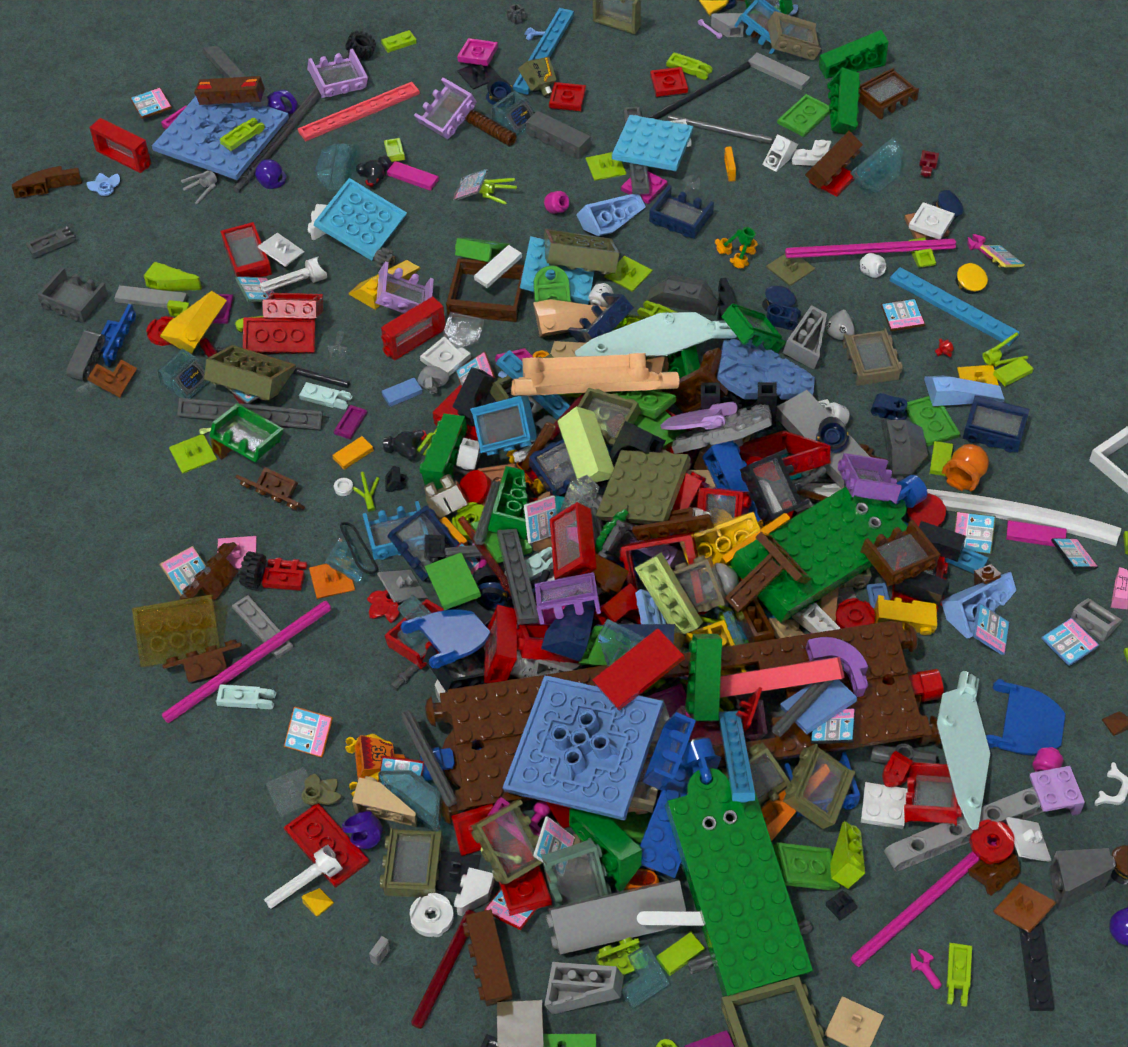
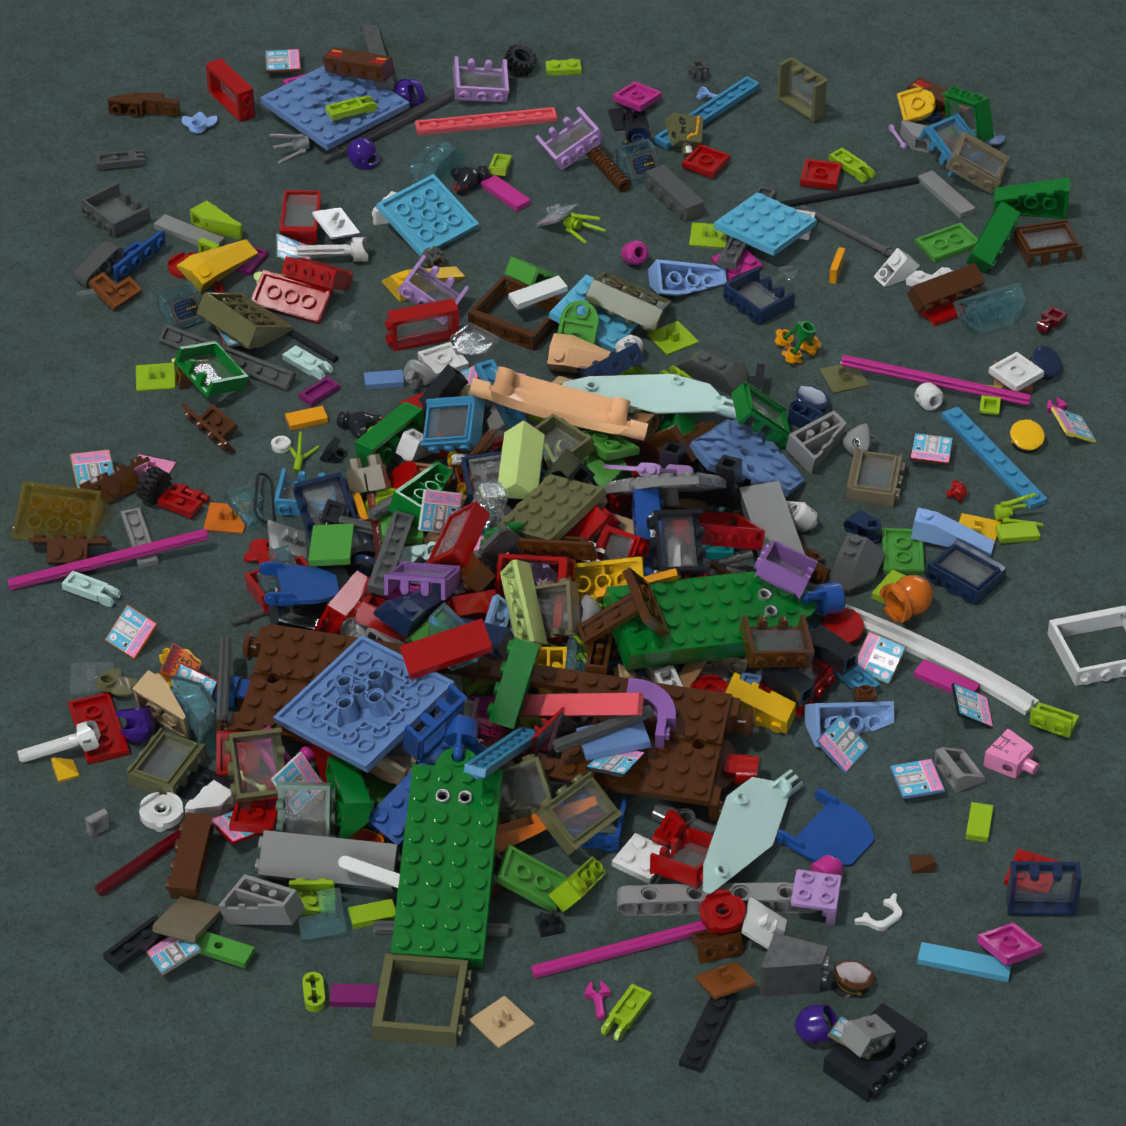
camera: 20 degrees right, 10 degrees down
(833, 432) = (777, 524): dark blue piece -> none

